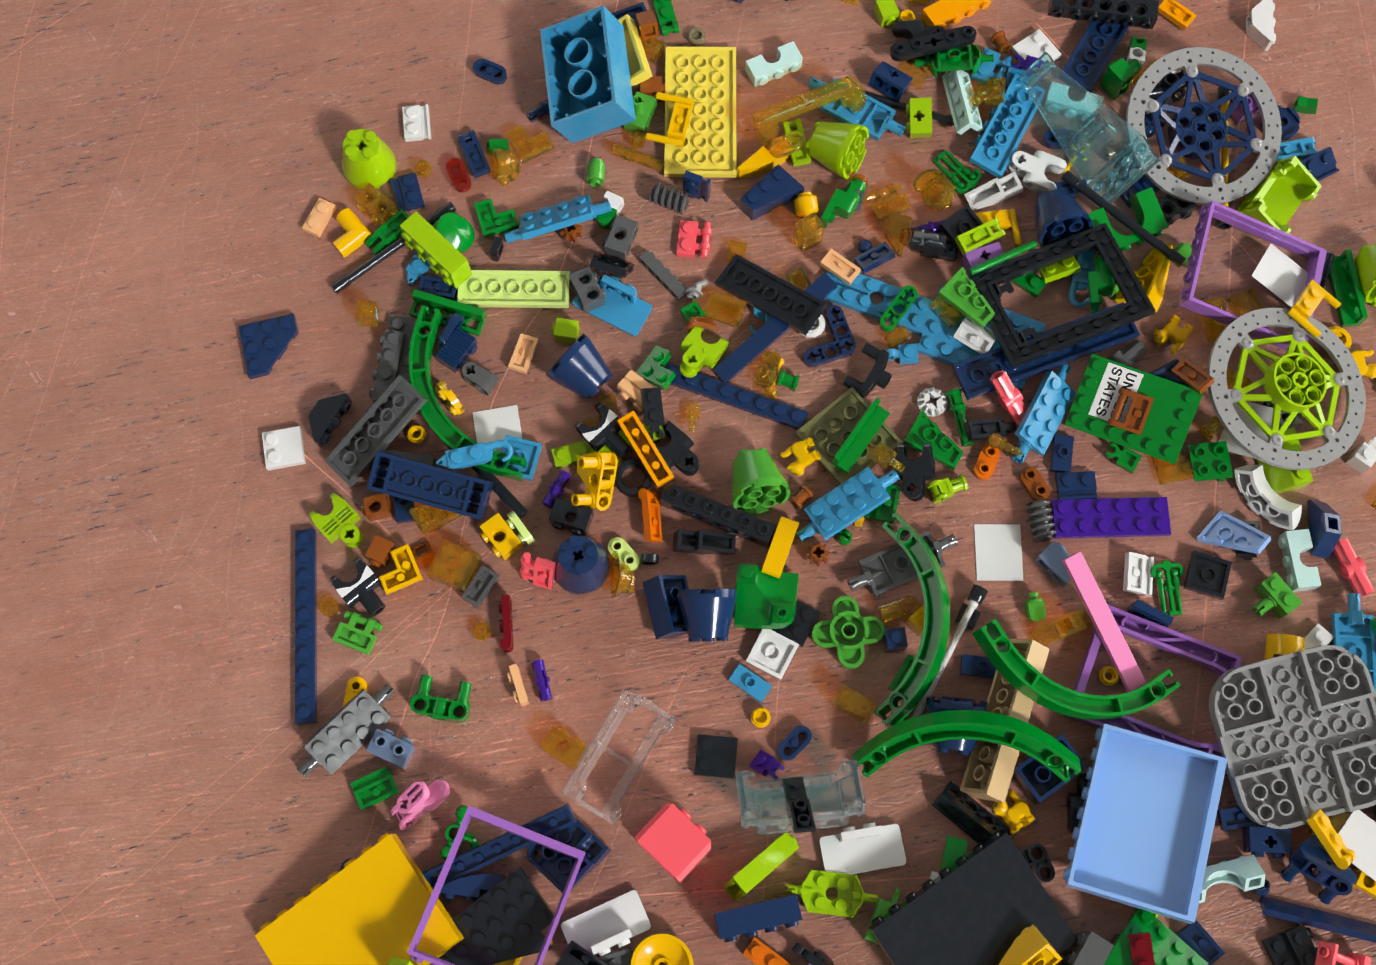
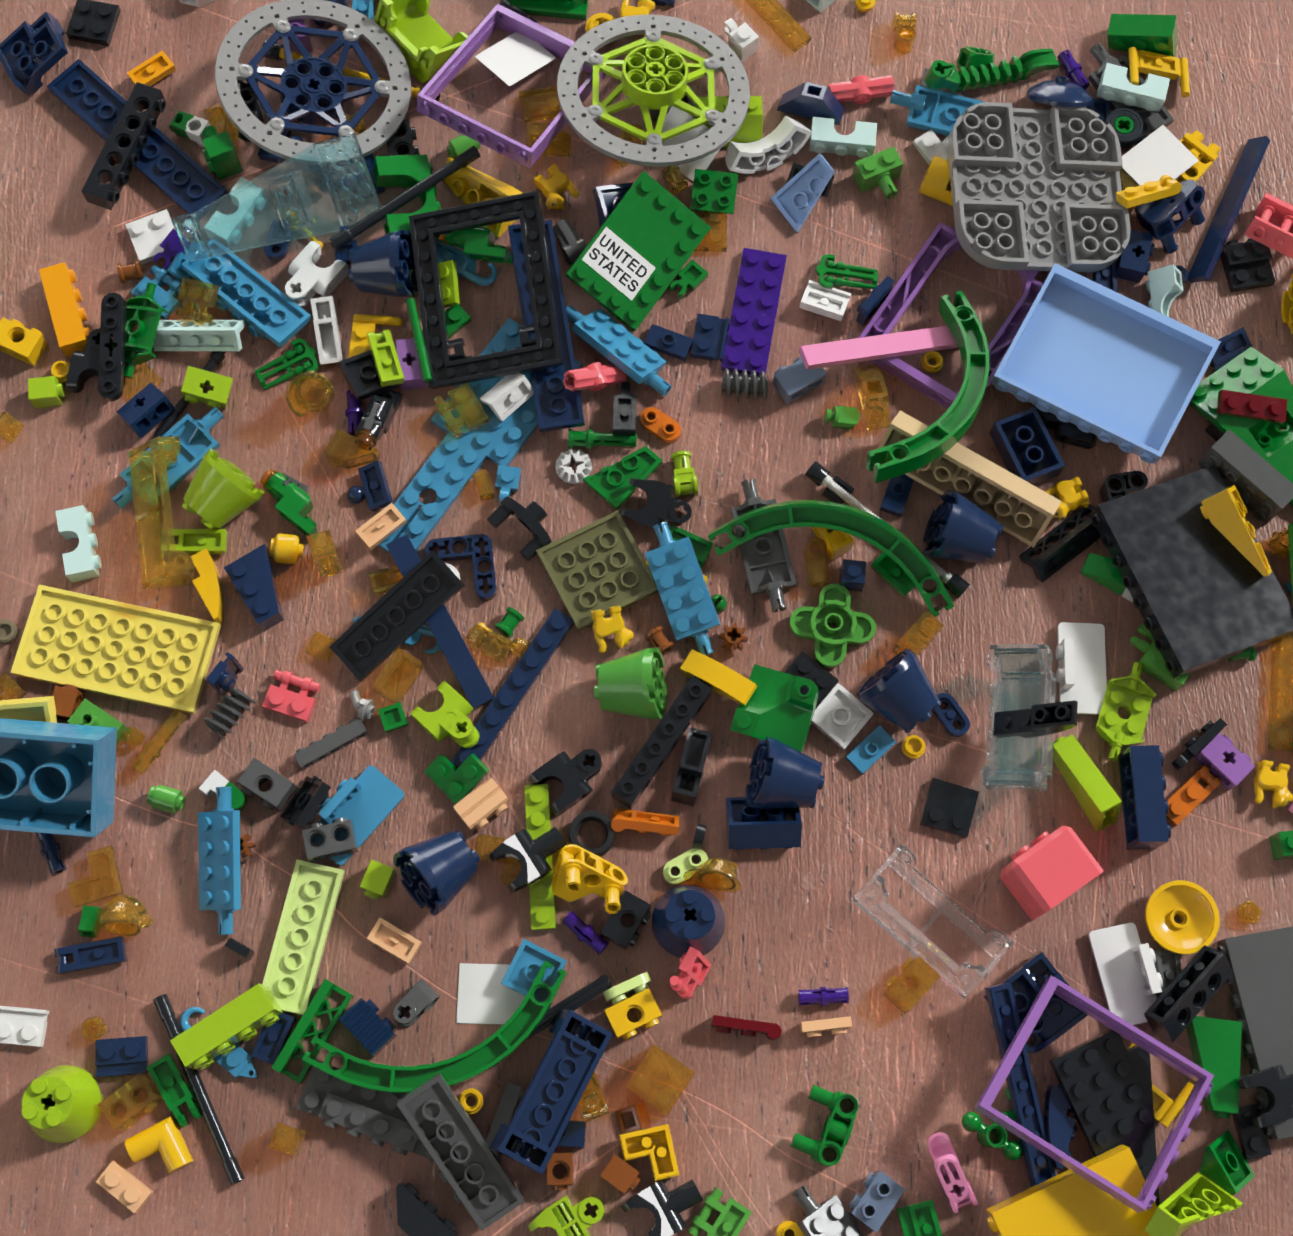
camera: 80 degrees left, 0 degrees up
(452, 322) = (332, 1023): dark blue plate -> none
(452, 403) = (438, 1046): yellow plate -> none
(456, 230) = (199, 999): green piece -> none
(459, 176) = (118, 981): clear red plate -> none
(473, 455) = (527, 1025): dark azure plate -> none
(480, 587) = (692, 1052): dark grey plate -> none
(486, 631) = (748, 1067): clear yellow plate -> none
(494, 223) = (200, 948): green plate -> none
(645, 449) = (567, 807): light orange brick -> none
(653, 410) = (515, 790): black plate -> none
(679, 120) = (126, 676): yellow plate -> none
(693, 410) = (519, 745): clear yellow bar -> none
(703, 322) = (410, 708): dark orange piece -> none
(765, 764) = (970, 752): dark purple plate -> none
(785, 144) = (201, 551): clear yellow plate -> none
(800, 695) = (901, 691): none -> dark blue cone
(860, 437) = (603, 554): green fence -> none
(885, 456) = (635, 532): clear yellow plate -> none
(895, 203) = (312, 450): clear yellow plate -> none
(898, 301) = (466, 481): green beam -> none
(964, 297) = (463, 392): bright green wing -> none
(972, 726) = (978, 525): green piece -> none
(996, 441) = (643, 405): clear yellow bar -> none
(998, 552) = (768, 440): white sticker -> none
(1033, 484) = (699, 381): dark orange plate -> none
(1136, 413) = (646, 246): dark orange plate -> none
(1192, 376) = (622, 176): dark orange plate -> none
(1207, 575) = (840, 231): black plate -> none
(1307, 303) = (560, 39): yellow plate -> none

